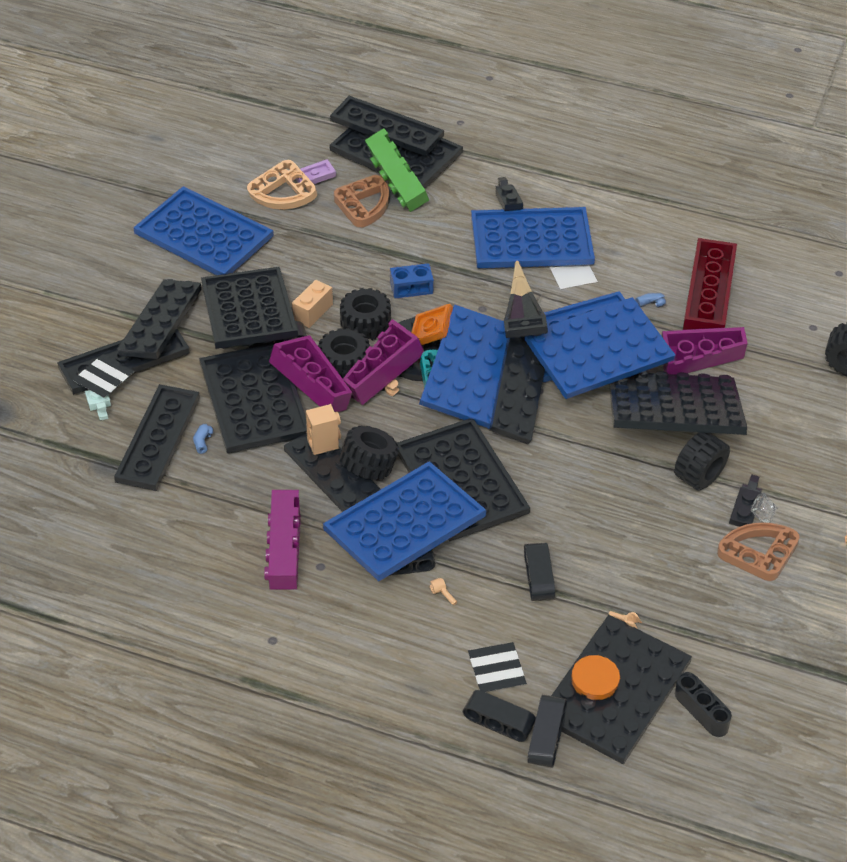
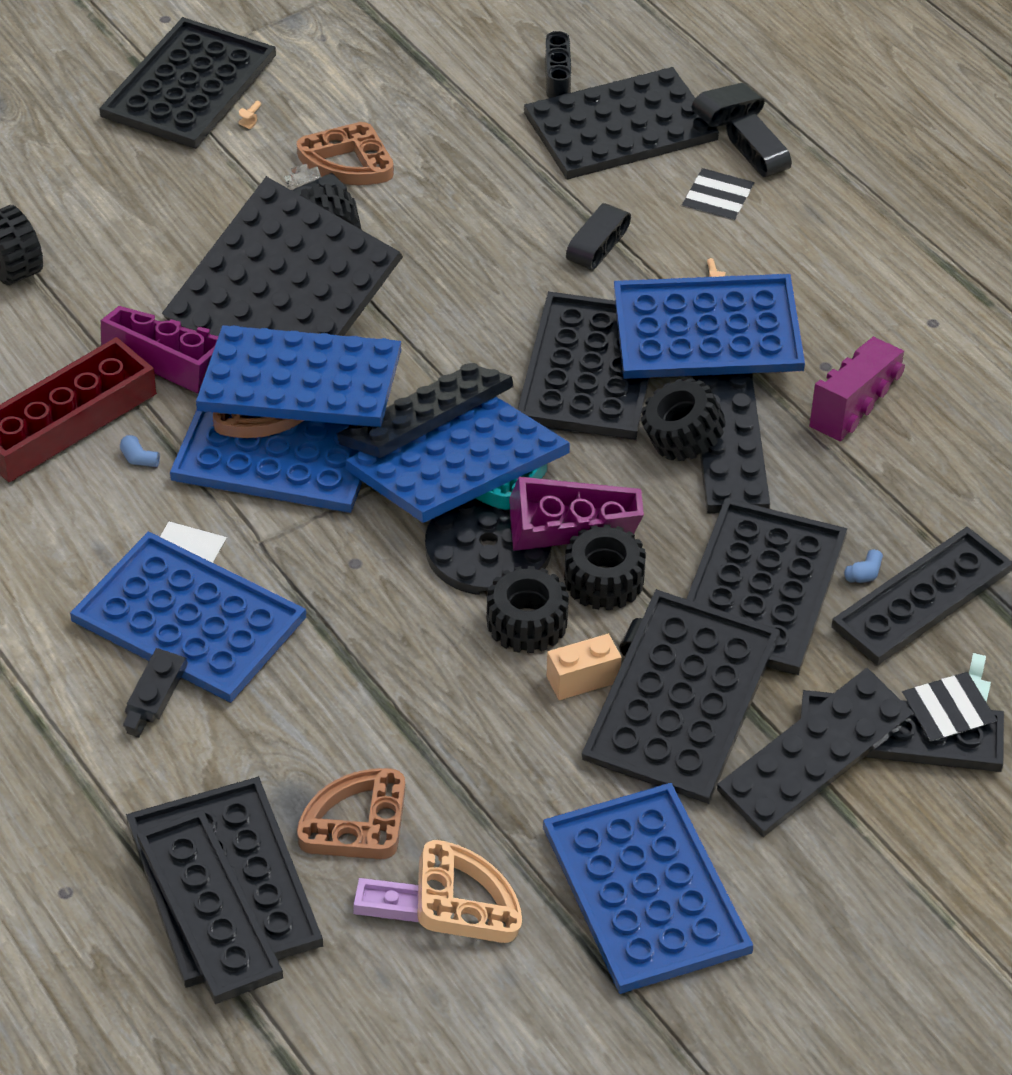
camera: 145 degrees left, 0 degrees up
(311, 372) = (671, 550): magenta wedge -> none
(323, 429) = (725, 450): light nougat brick -> none
(396, 171) = (282, 797): bright green wedge -> none
(411, 280) = (417, 633): blue brick -> none
(432, 324) = (469, 523): orange tile -> none
(523, 312) = (364, 428): black plate -> none
(595, 677) = (641, 118): orange tile -> none
(630, 618) = (546, 160): light nougat hand -> none

